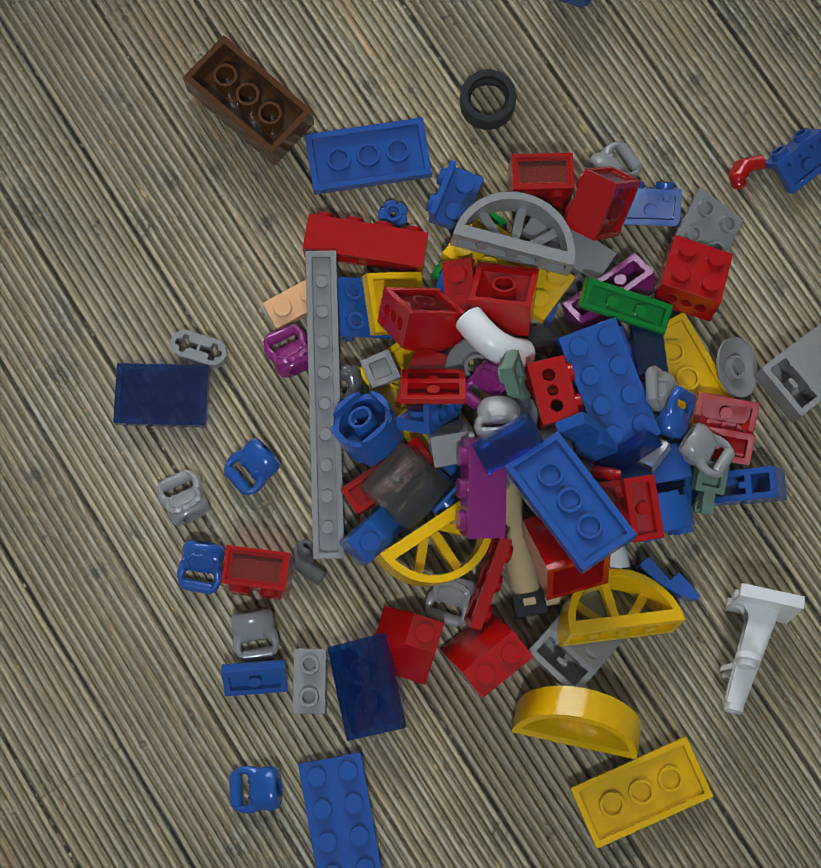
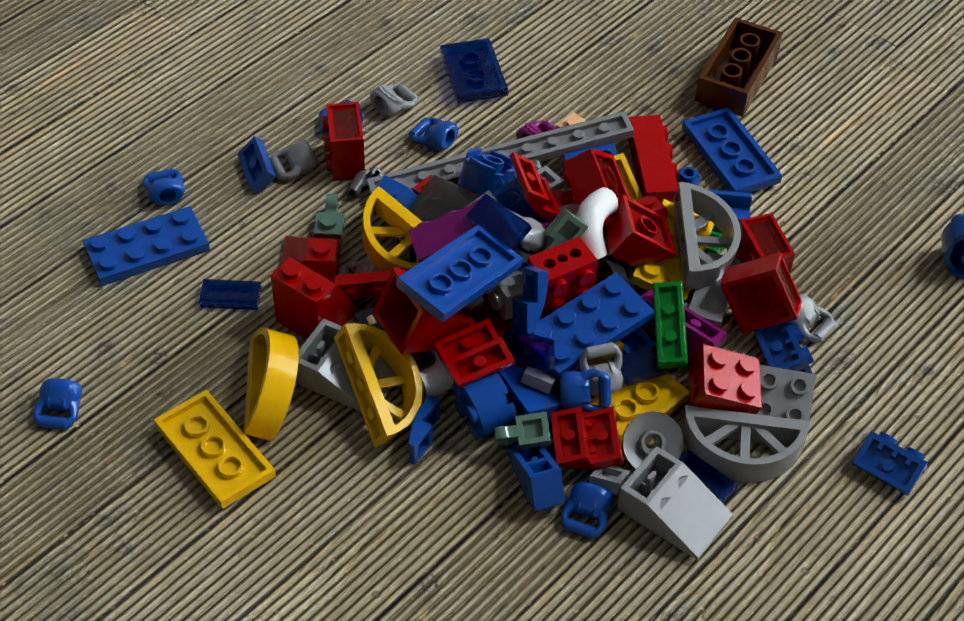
camera: 75 degrees right, 30 degrees down
(201, 342) = (520, 86): light grey beam -> none
(310, 681) = (261, 196): light grey brick -> none
(361, 614) = (330, 223): none -> sand green plate
(366, 687) = (266, 231): clear blue plate -> none
(435, 740) = (230, 294): none -> clear blue tile
(491, 78) = (825, 203): black tyre -> none
(601, 472) = (501, 319): red piece -> none
(699, 446) = (558, 403): light grey piece -> none
(737, 274) = (746, 428): none -> light grey window
(742, 169) = (857, 417): red arm -> none
(760, 612) = (408, 495): white piece -> none
(768, 420) = (610, 478): none -> light grey plate
(776, 333) = (714, 480): none -> clear blue tile
(784, 446) = (588, 501): none -> blue piece

